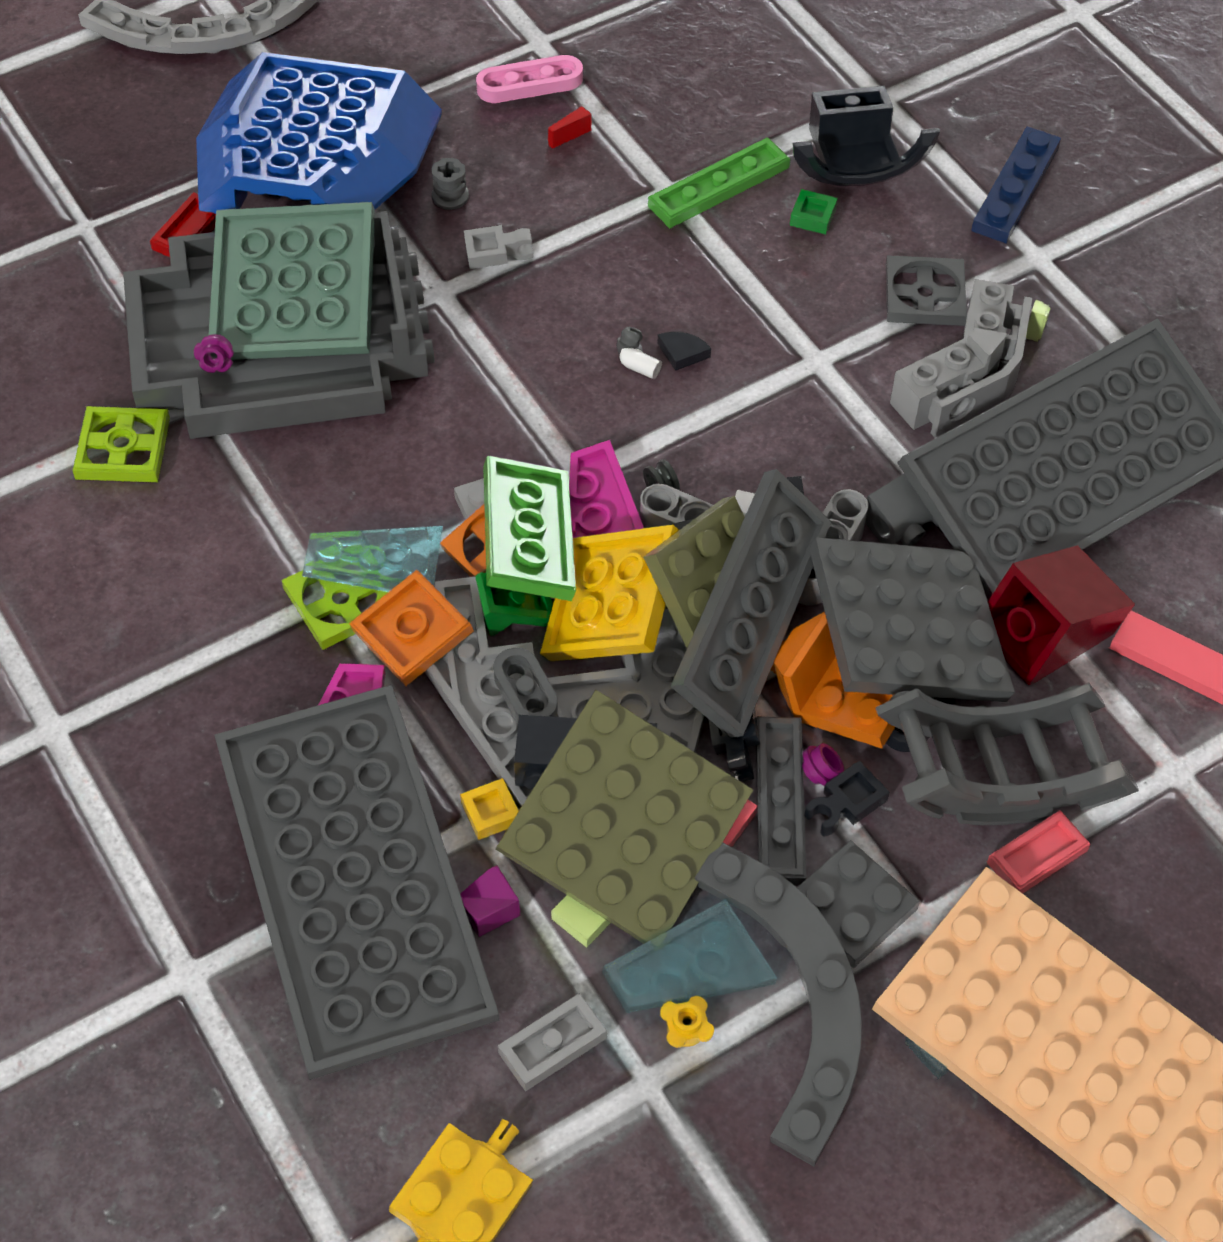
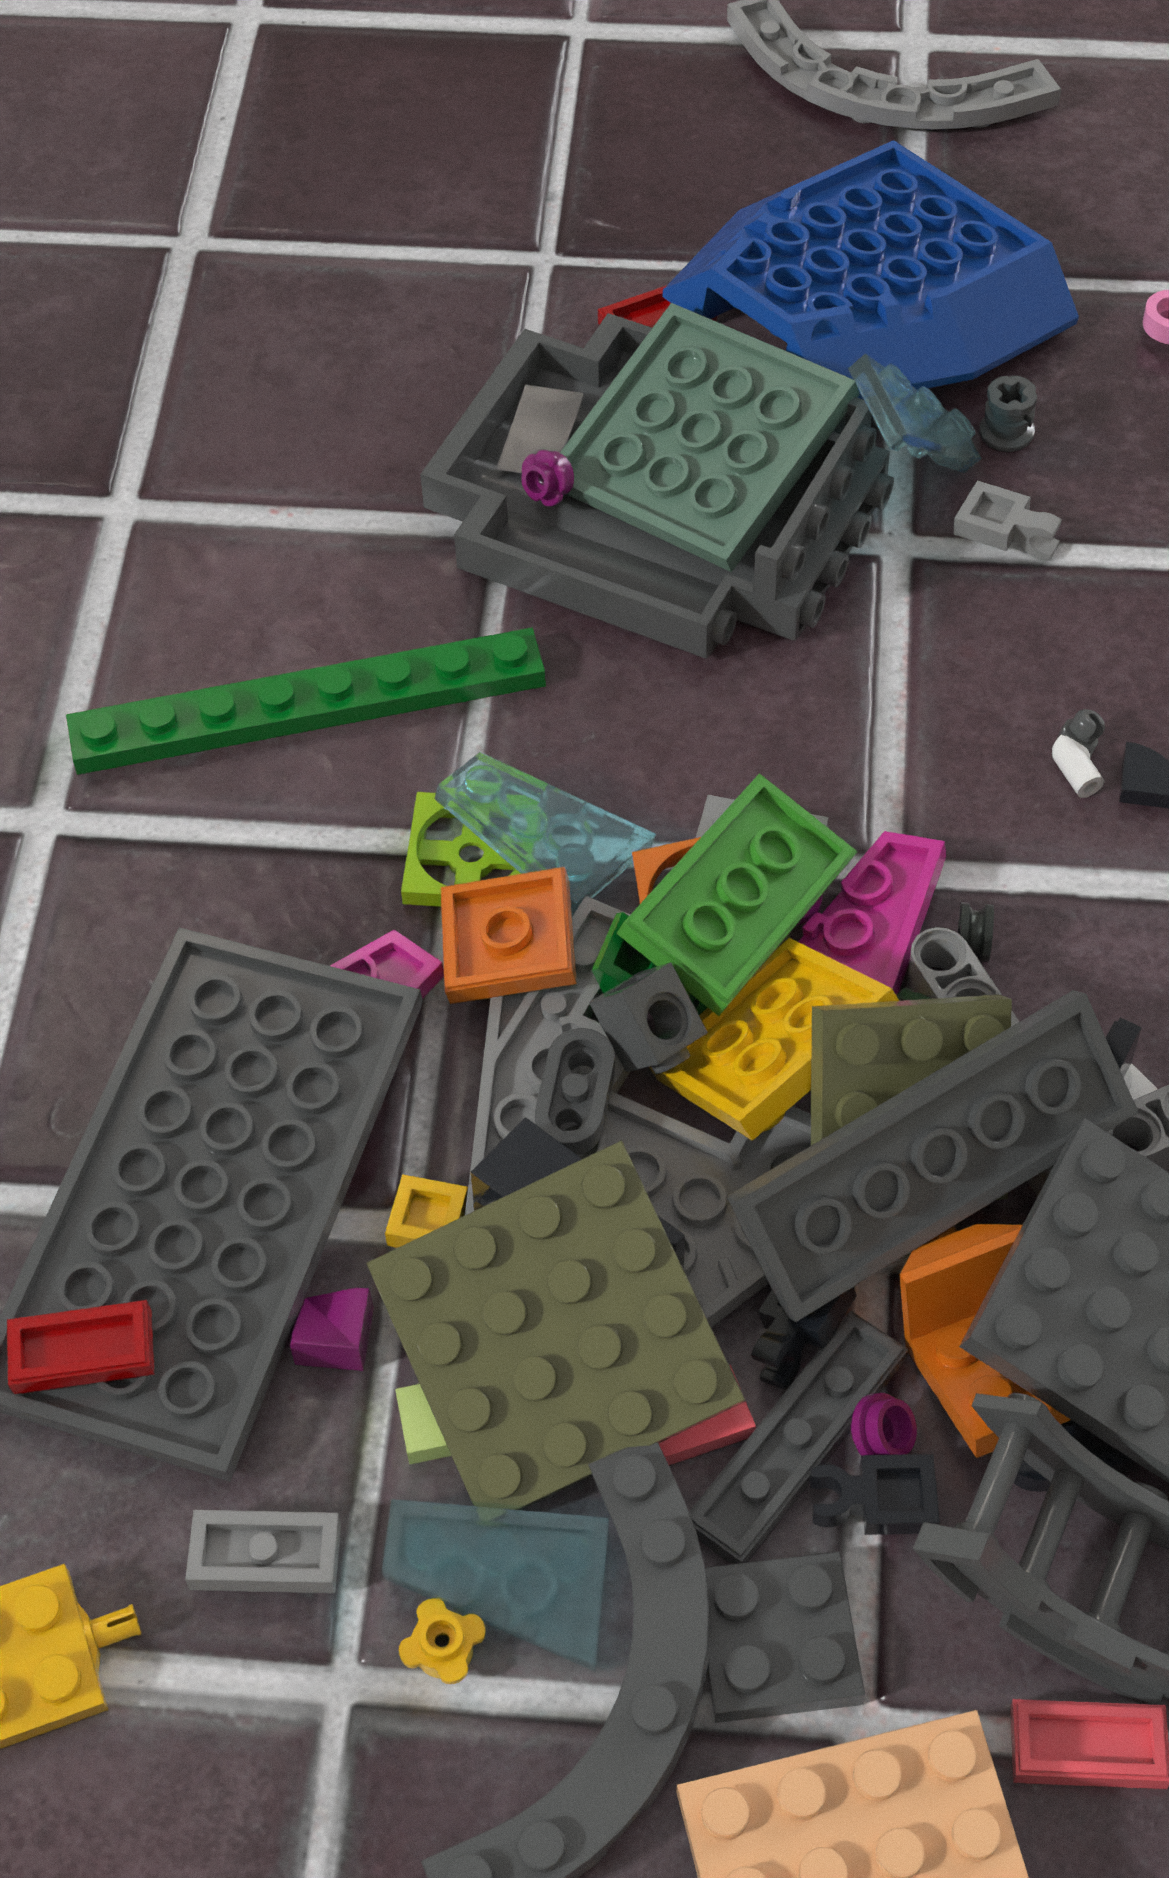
camera: 40 degrees right, 0 degrees up
(116, 468) = (347, 508): lime piece -> none
(158, 570) = (304, 700): none -> green plate
(178, 328) = (540, 423): none -> sticker
(359, 1001) = (80, 1347): none -> red tile
(407, 206) = (914, 416): none -> clear light blue wing
(538, 623) = (624, 1019): none -> dark grey brick

